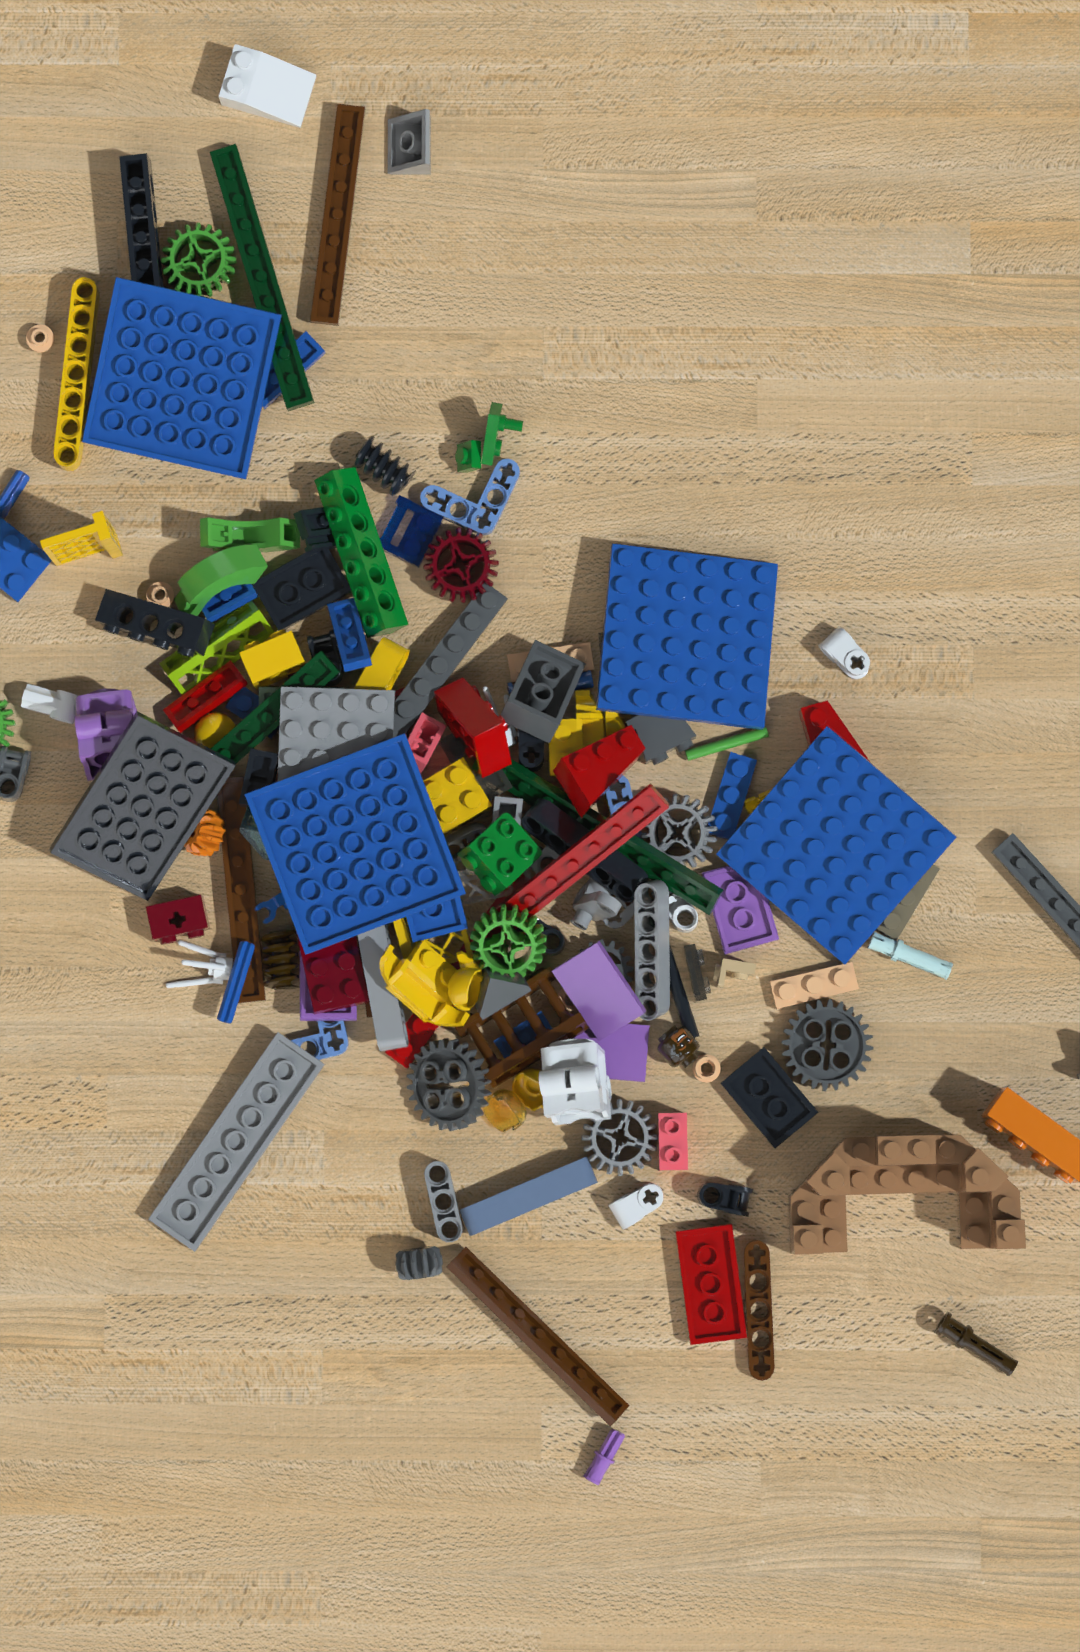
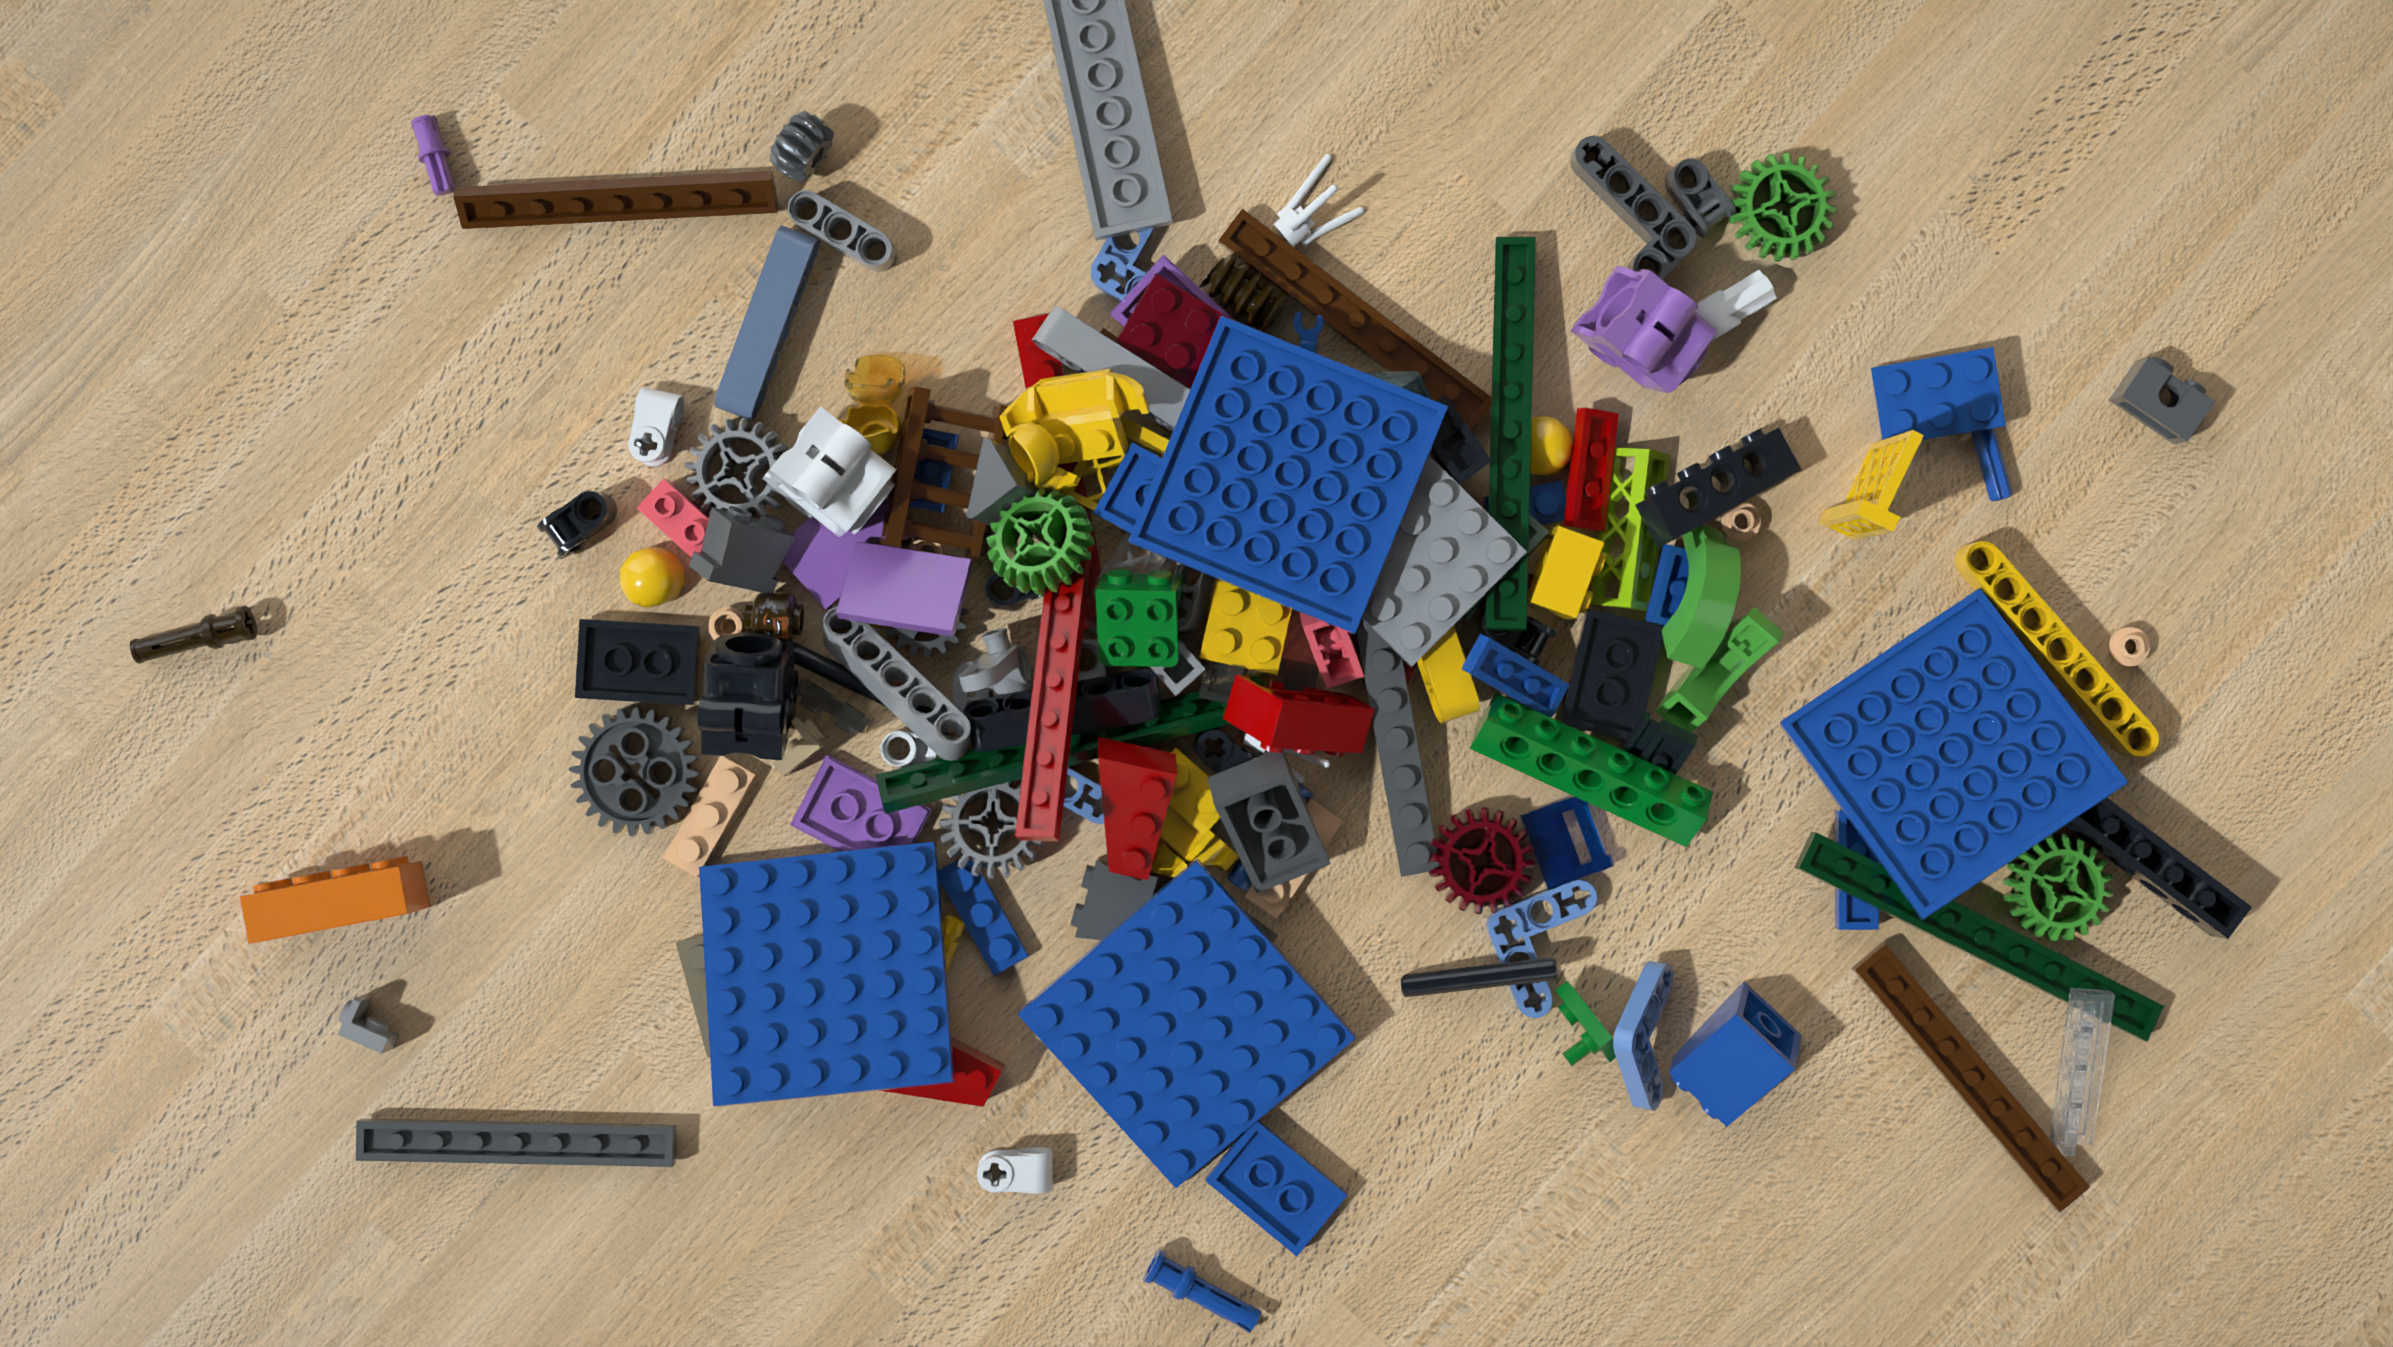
camera: 125 degrees right, 5 degrees up
(50, 804) = (1626, 204): none -> dark grey beam
(142, 806) = (1537, 292): black plate -> none
(162, 914) = (1404, 213): dark red brick -> none
(206, 835) = (1451, 335): orange gear -> none
(236, 982) = (1264, 225): blue axle -> none
(266, 86) = (2178, 1129): white slope -> none
(281, 163) = (2081, 1068): none -> clear fence
(383, 467) = (1659, 876): black piece -> none
(410, 144) = (1975, 1222): light grey slope -> none
(438, 343) = (1736, 1055): none -> blue slope
(451, 1111) = (941, 325): dark grey gear -> none
(468, 456) = (1587, 975): green plate -> none
(476, 405) = (1633, 1034): none -> medium blue beam
(522, 510) = (1479, 977): none -> black axle
(657, 1093) = (742, 549): none -> dark grey hips
(711, 1284) = (505, 425): red plate -> none
(718, 1133) = (651, 577): none -> yellow hair
(726, 743) = (1041, 958): bright green bar -> none
(728, 513) = (1276, 1187): none -> blue plate
(729, 1018) = (748, 696): none -> black piece
(755, 1324) = (416, 445): reddish brown beam -> none
(822, 513) = (1185, 1284): none -> blue pin
(899, 951) = (662, 935): light aqua pin -> none
(899, 1166) = (324, 784): medium nougat brick -> none

